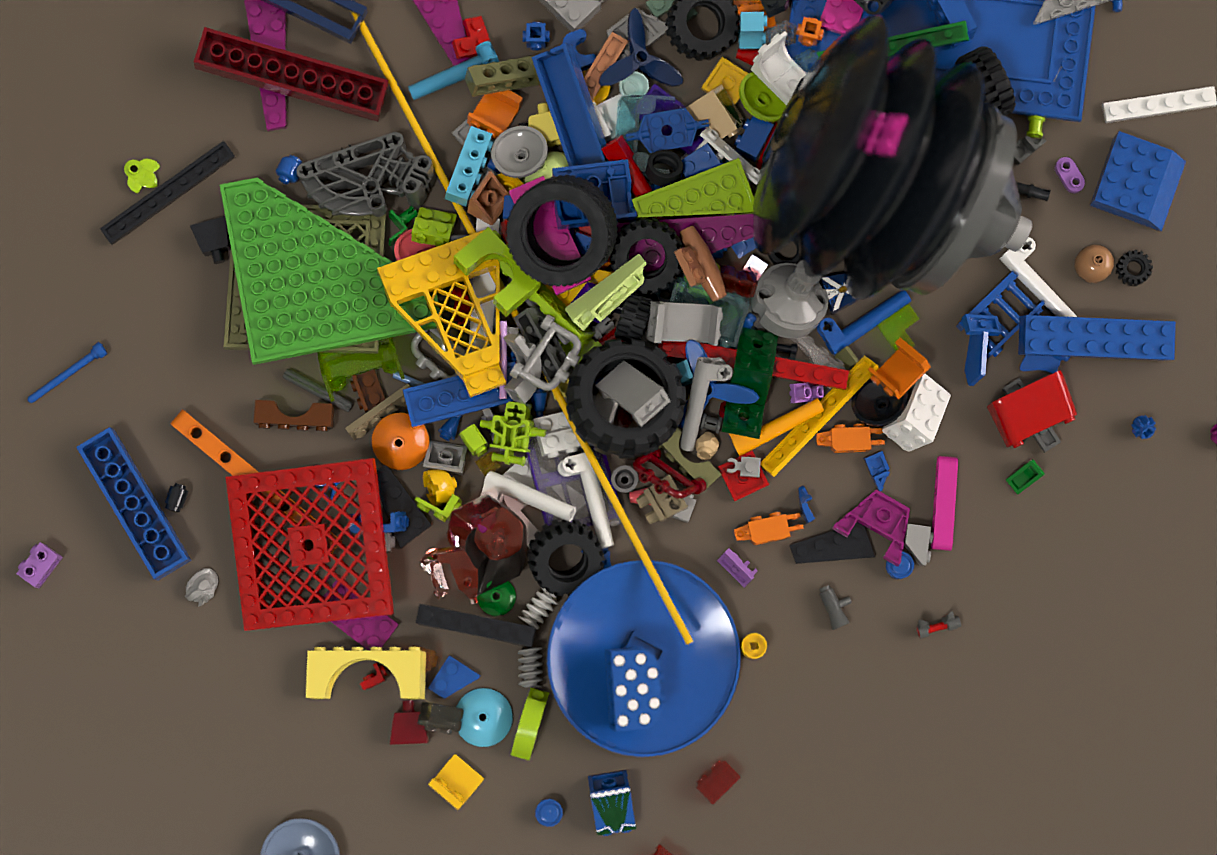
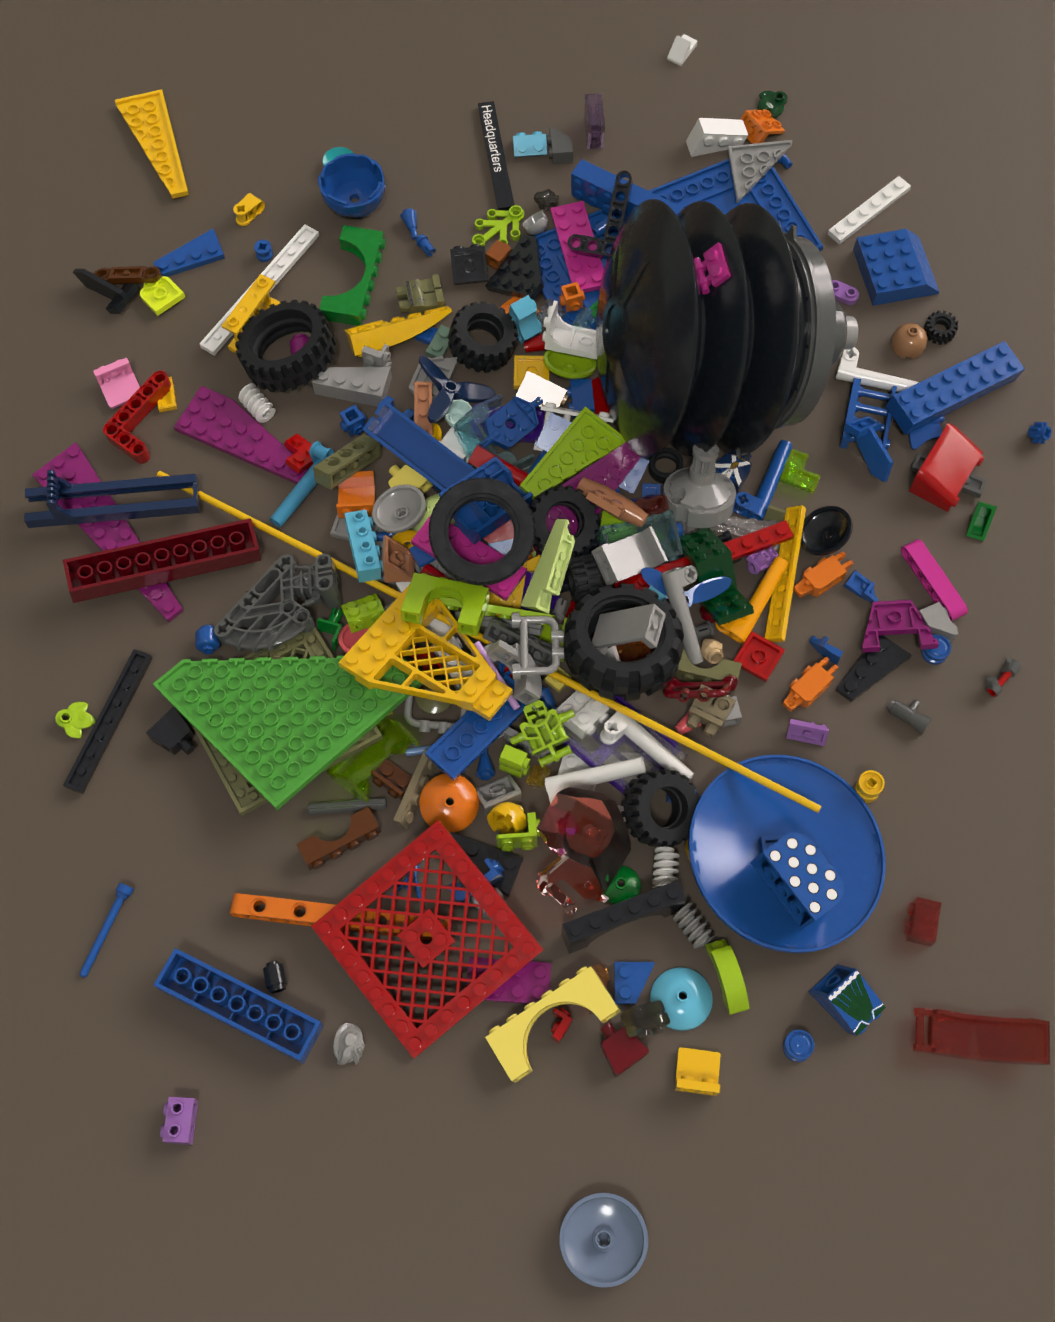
camera: 30 degrees left, 15 degrees down
(624, 471) = (666, 712): flat silver plant -> none
(668, 158) = (528, 443): black tyre -> none
(748, 466) = (757, 644): light grey plate -> none
(900, 370) = (825, 495): orange panel -> none
(921, 417) = (869, 525): white bracket -> none

